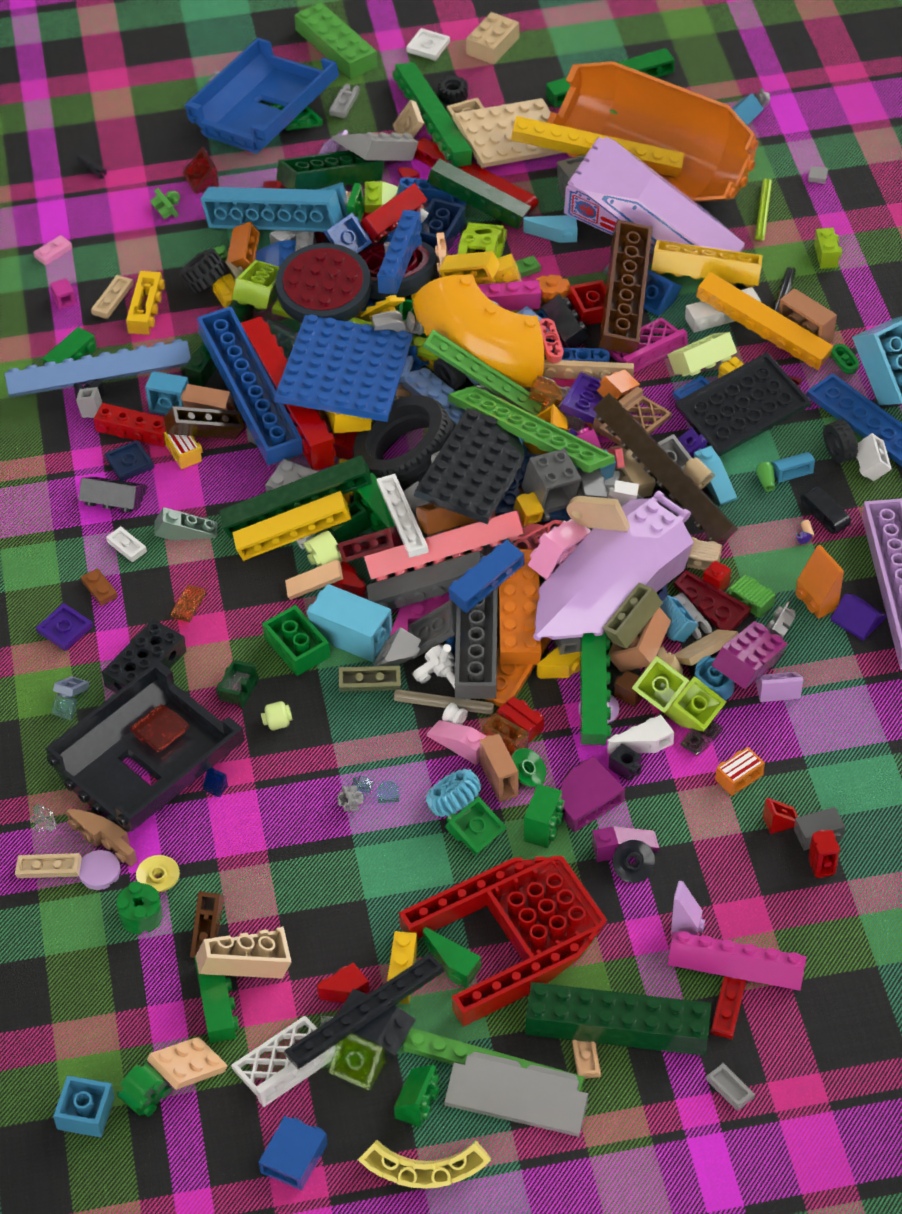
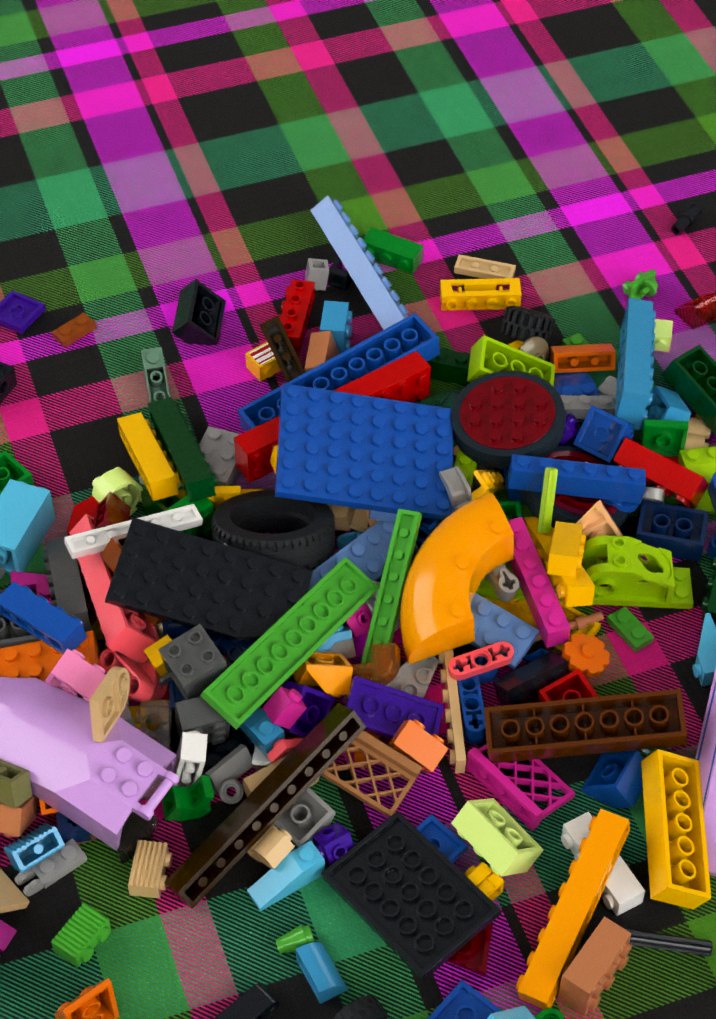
camera: 80 degrees right, 0 degrees up
(53, 250) = (548, 214): bright pink plate -> none
(63, 293) = (479, 230): dark pink brick -> none
(126, 544) = (129, 338): white plate -> none
(129, 460) = (245, 323): dark blue tile -> none
(188, 603) = (51, 398): clear orange plate -> none
(314, 579) = (79, 490): light nougat tile -> none
(417, 268) = (547, 500): none -> lime axle
(713, 603) = (63, 898): dark red wing -> none
(718, 575) = (107, 890): red brick -> none
(782, 616) = (49, 976): light grey hinge -> none
(807, 533) = (198, 998): arm -> none

